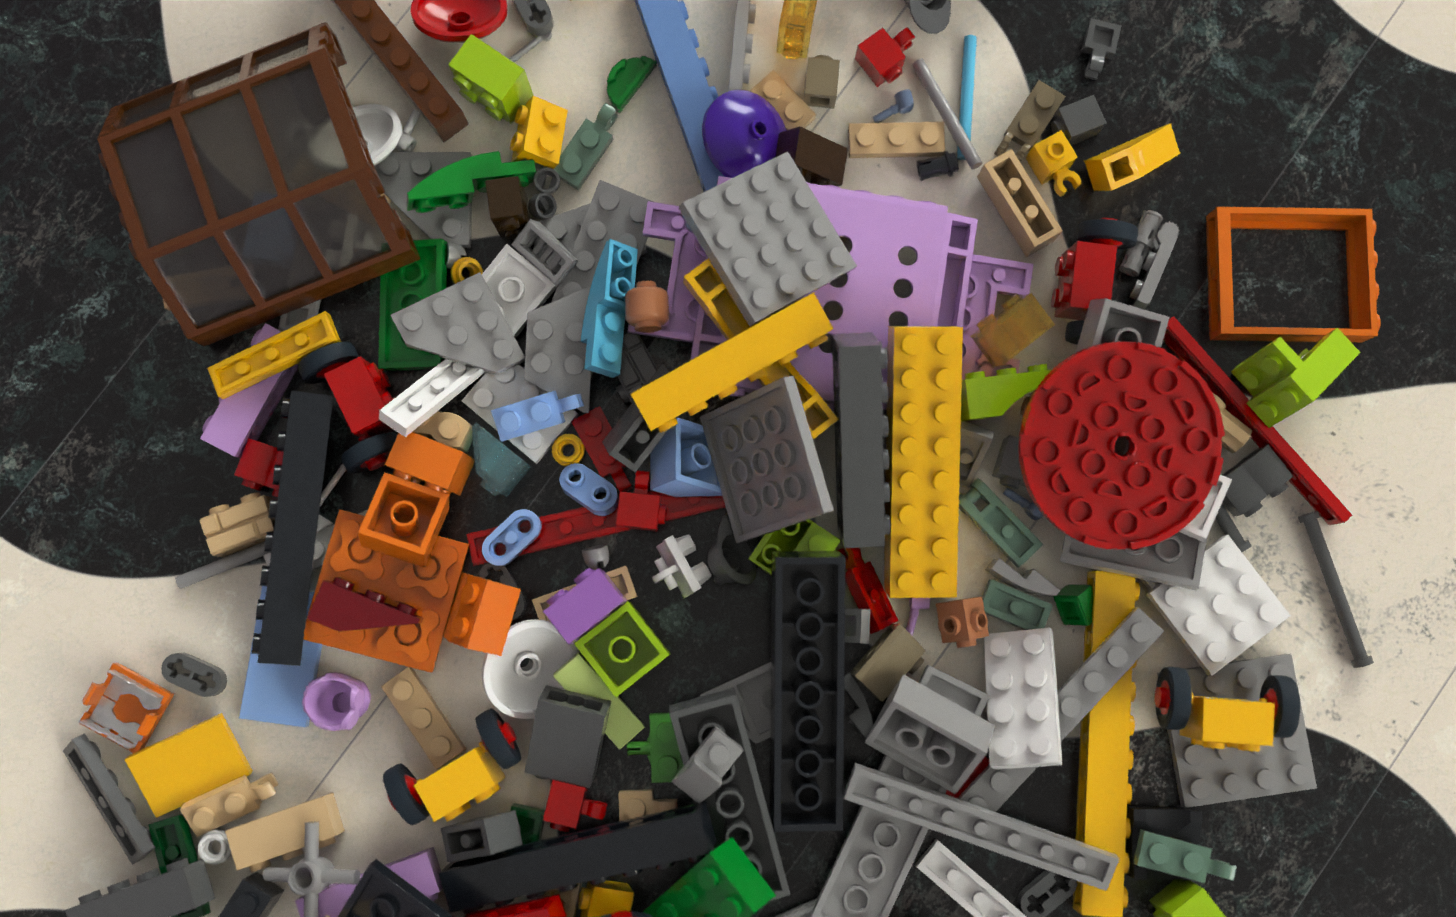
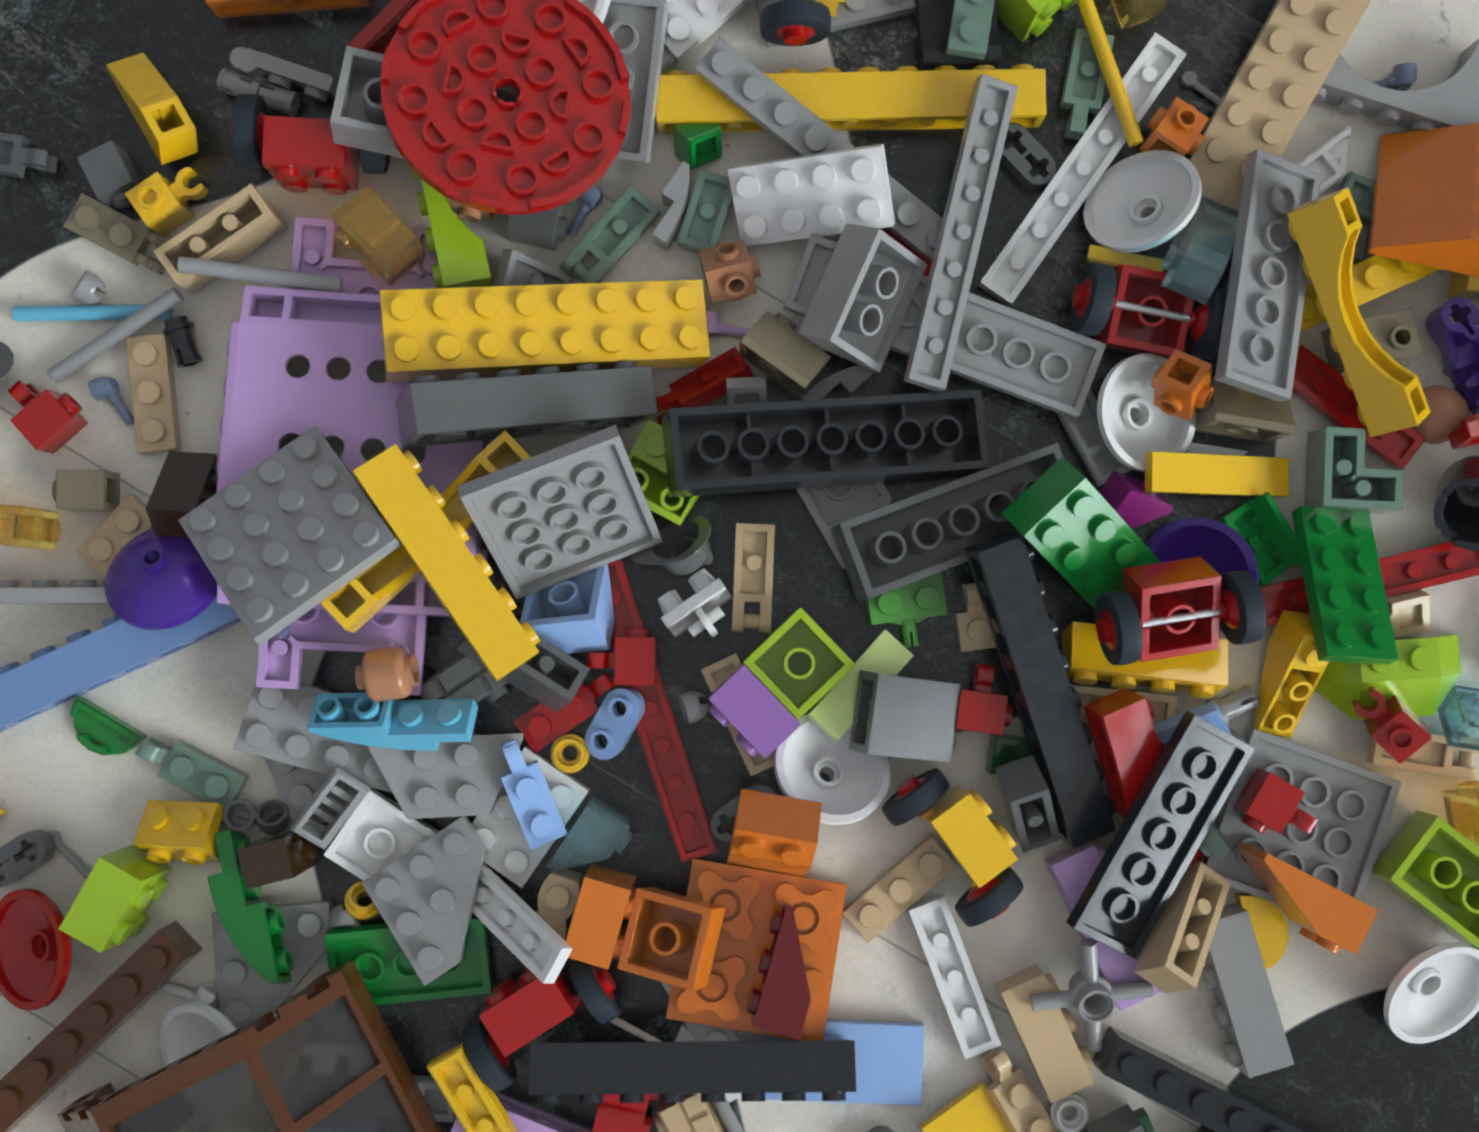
camera: 100 degrees left, 5 degrees up
(335, 701) = (891, 993): lavender hair -> none
(343, 757) = (954, 976): none -> white plate
(512, 537) = (680, 807): light blue plate -> none
(700, 617) = (753, 576): none -> tan plate
(708, 765) = (923, 548): light grey slope -> none
(986, 93) = (85, 288): none -> light grey hinge
(986, 232) = (259, 274): none -> light grey bar

